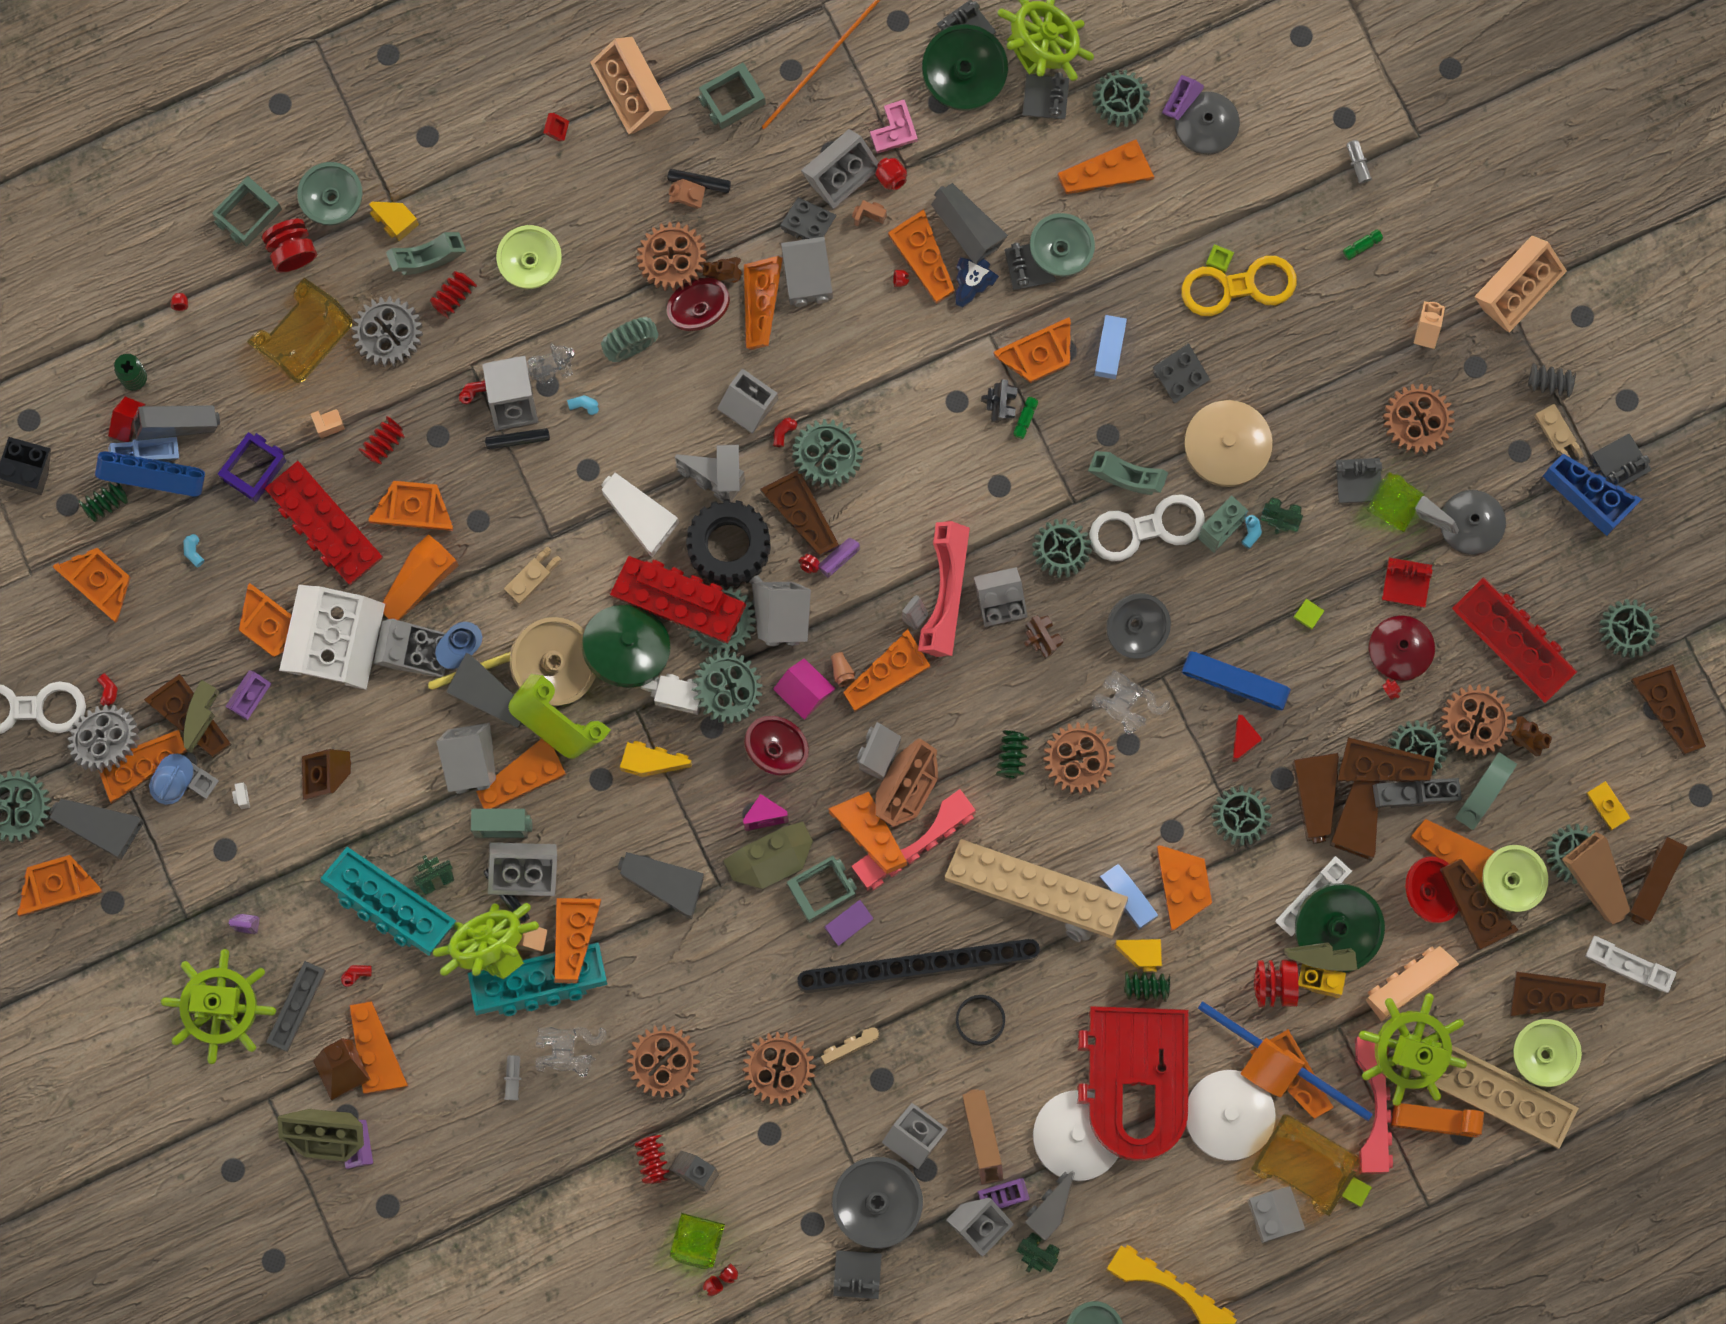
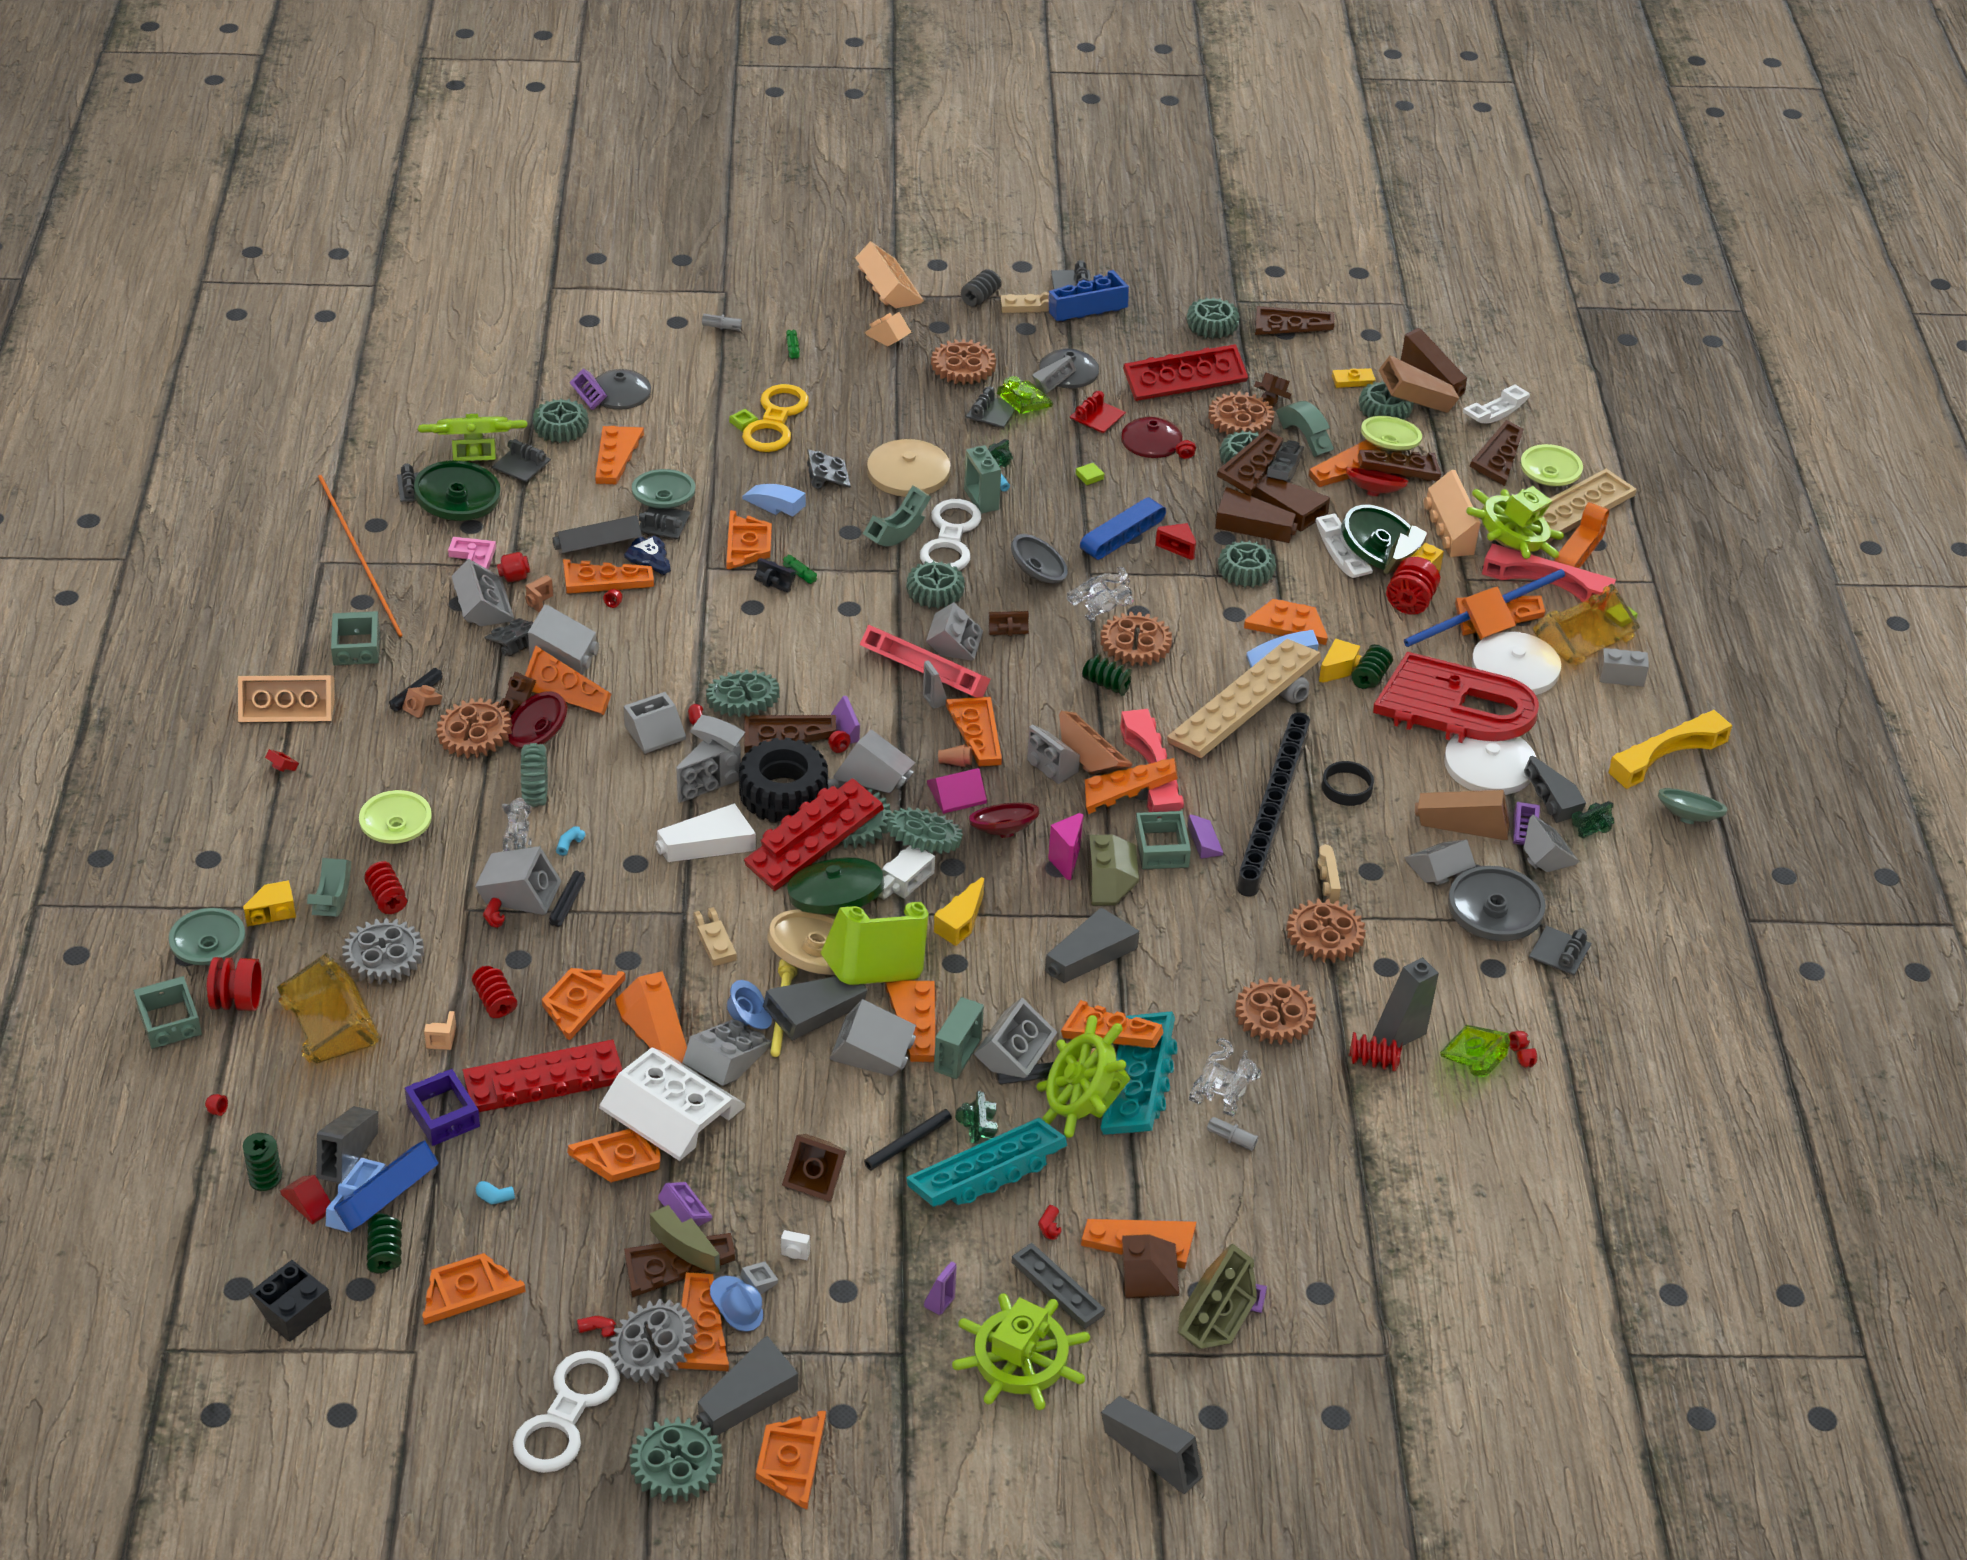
camera: 70 degrees left, 35 degrees down
(177, 1135) = (1155, 1442): none -> dark grey slope
(390, 829) = (907, 1139): none -> black piece

